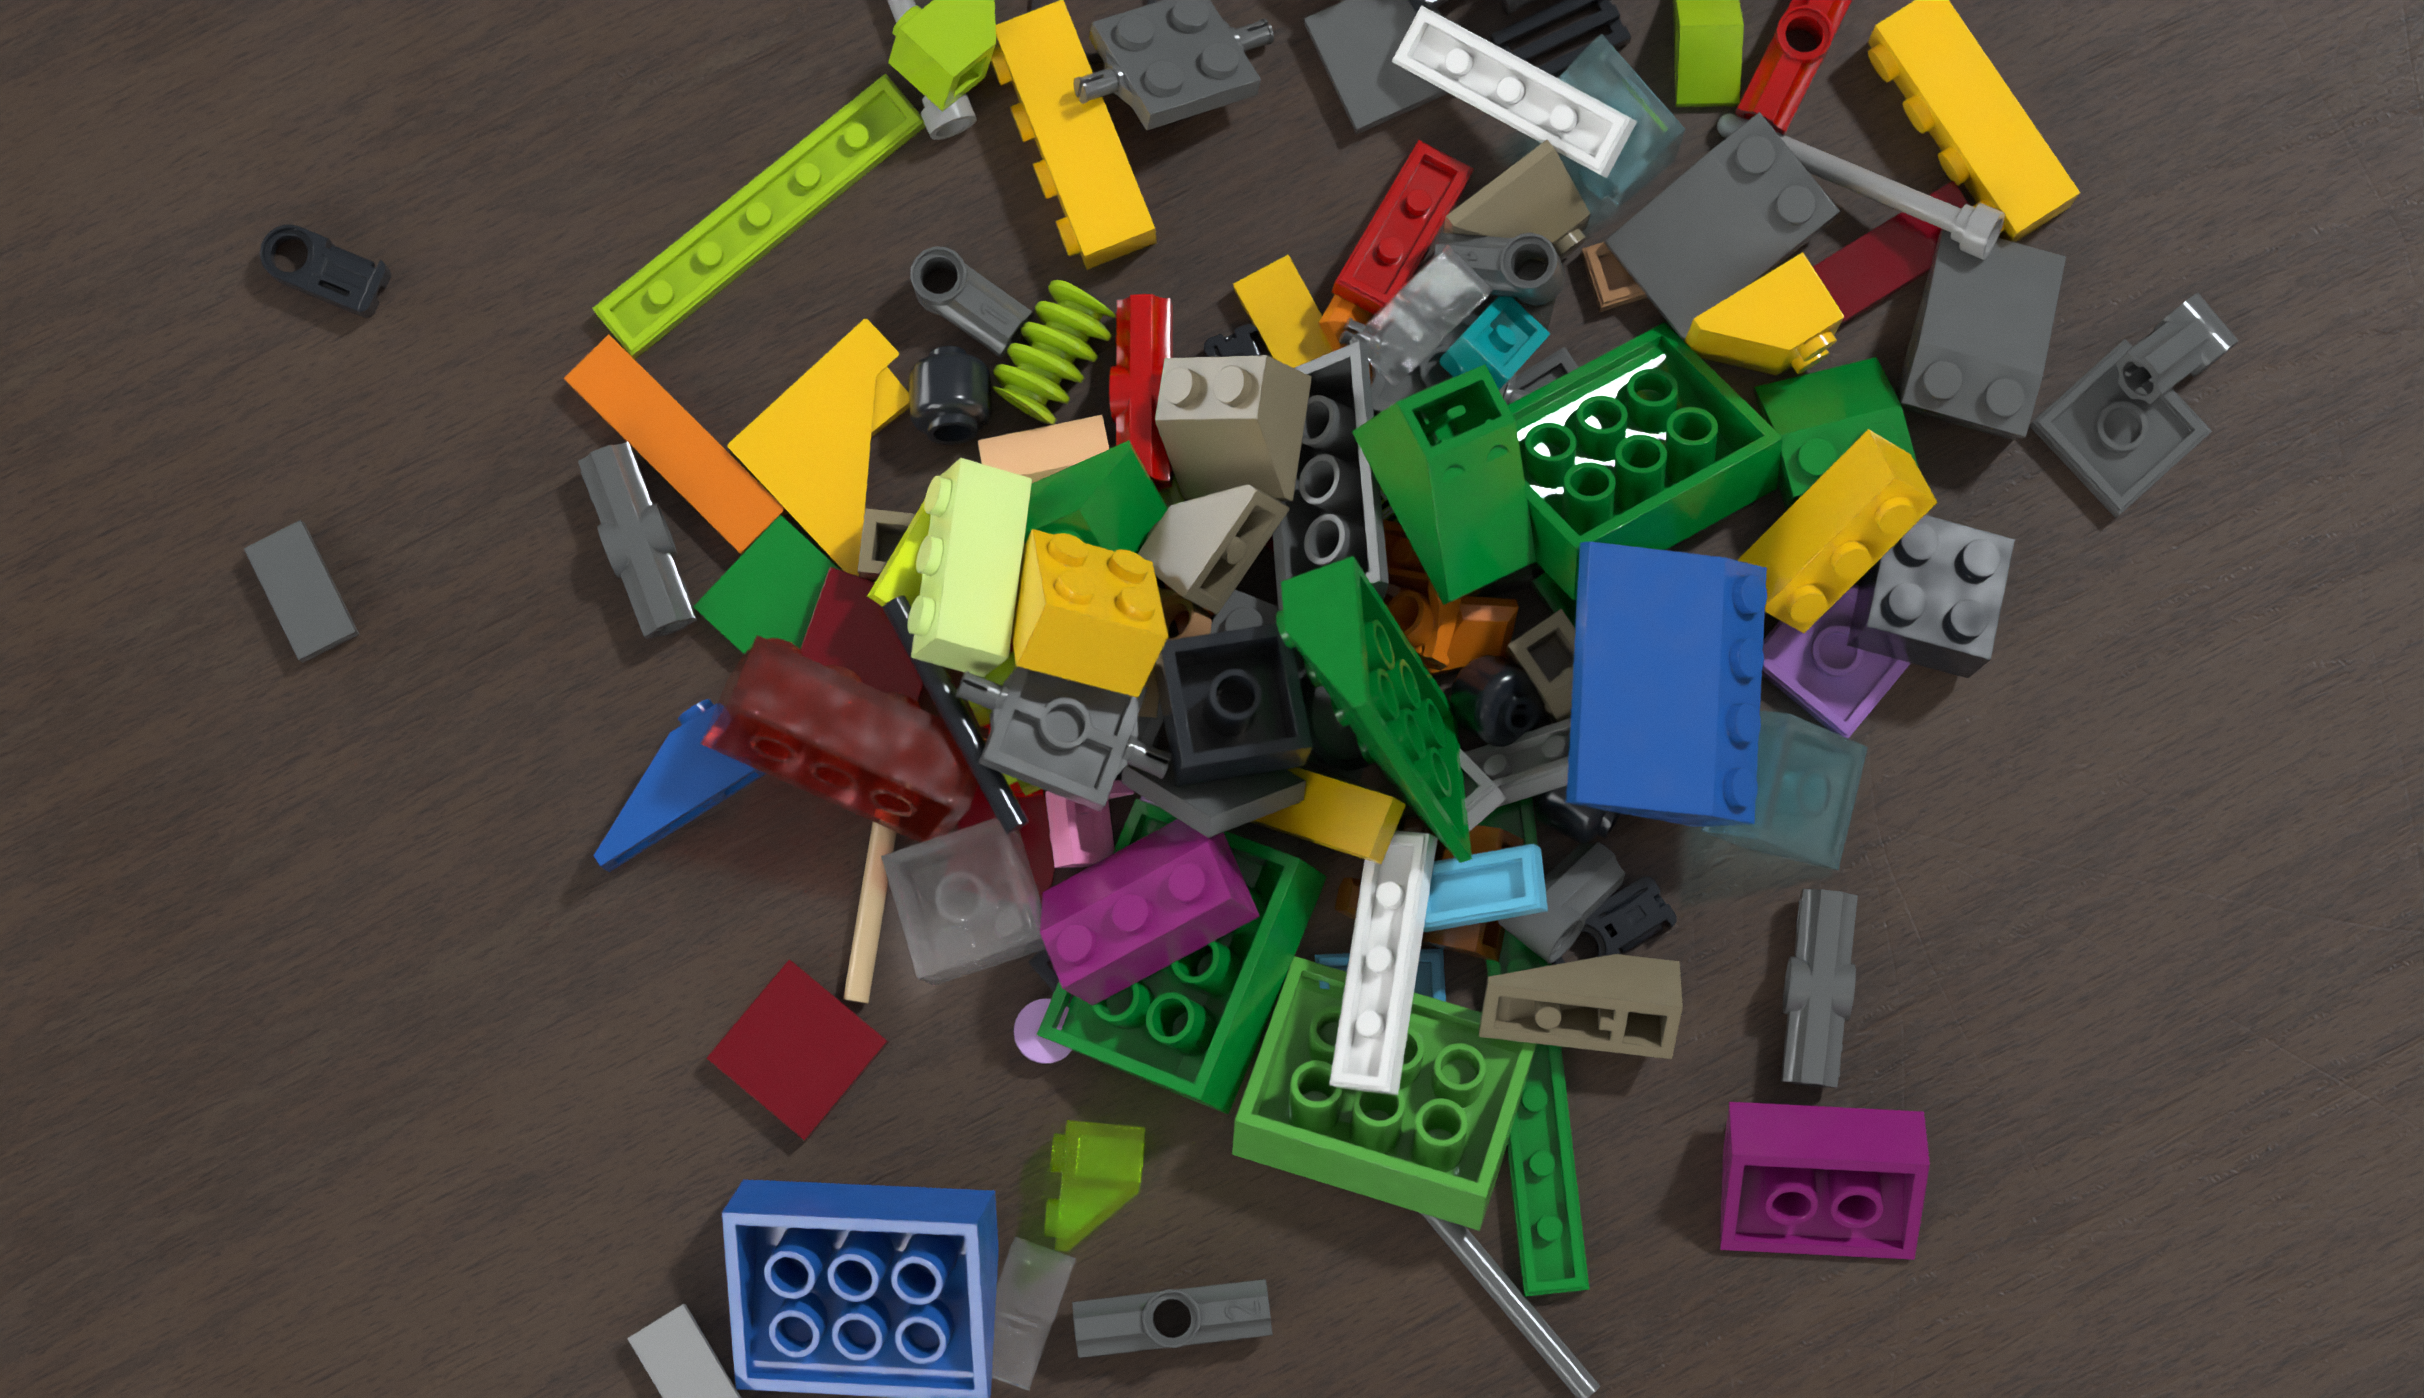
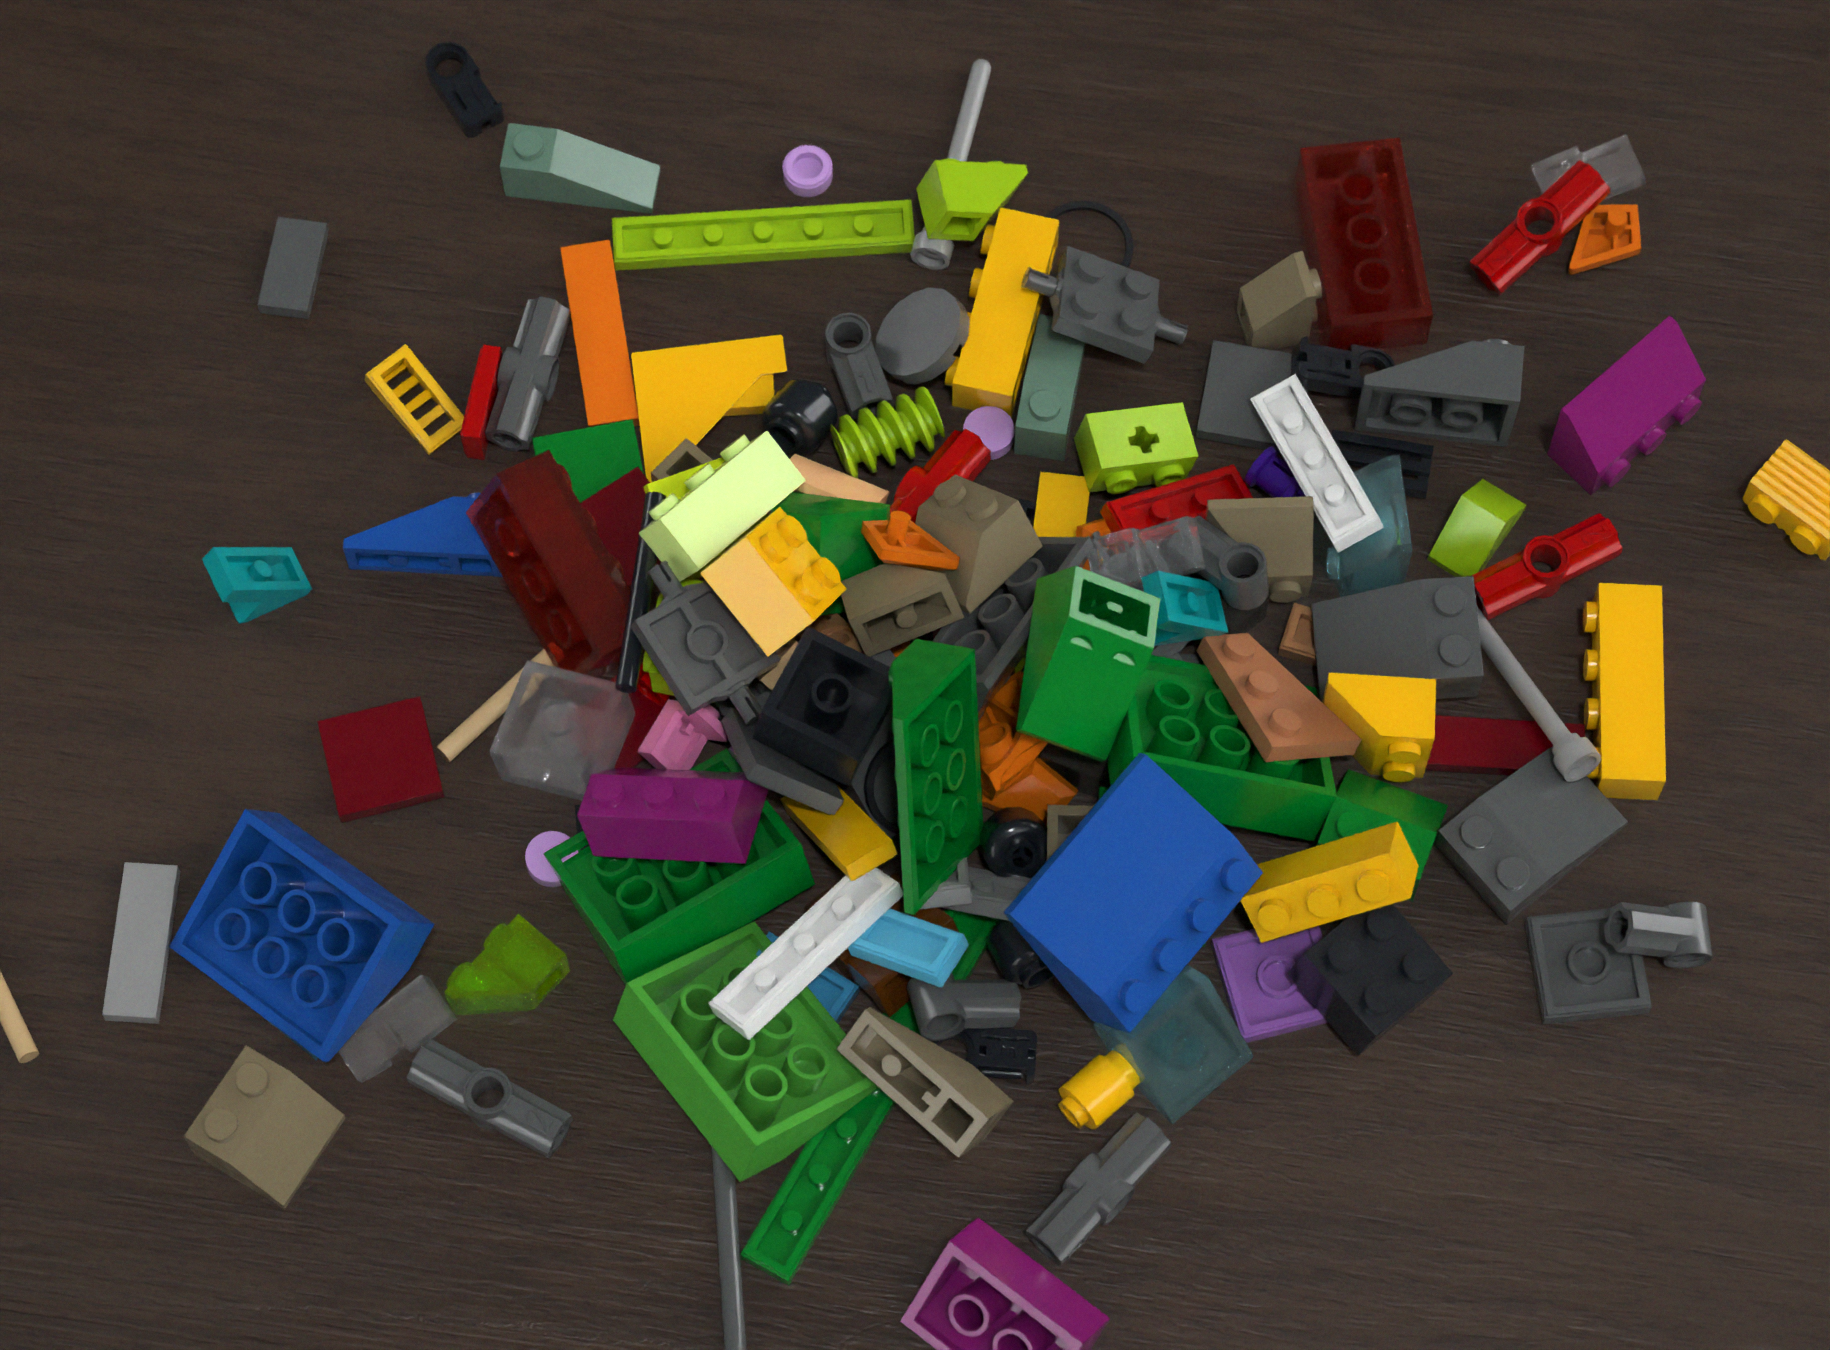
camera: 30 degrees right, 15 degrees down
(489, 633) = (389, 369): none -> yellow slope
(518, 282) = (574, 170): none -> sand green slope
(531, 953) = (256, 578): none -> teal slope
(614, 604) = (481, 402): none -> red tile
(752, 113) = (807, 171): none -> lavender tile
(1011, 221) = (922, 335): none -> dark grey tile
(1148, 270) = (993, 428): none -> lavender tile
(1178, 472) = (906, 544): none -> orange piece
(1179, 190) = (1048, 393): none -> sand green slope
(1326, 164) = (1135, 447): none -> lime brick
(1473, 129) = (1273, 475): none -> dark purple bush
(1645, 378) = (1272, 703): none -> nougat wing
(1749, 891) = (1098, 1090): none -> yellow brick

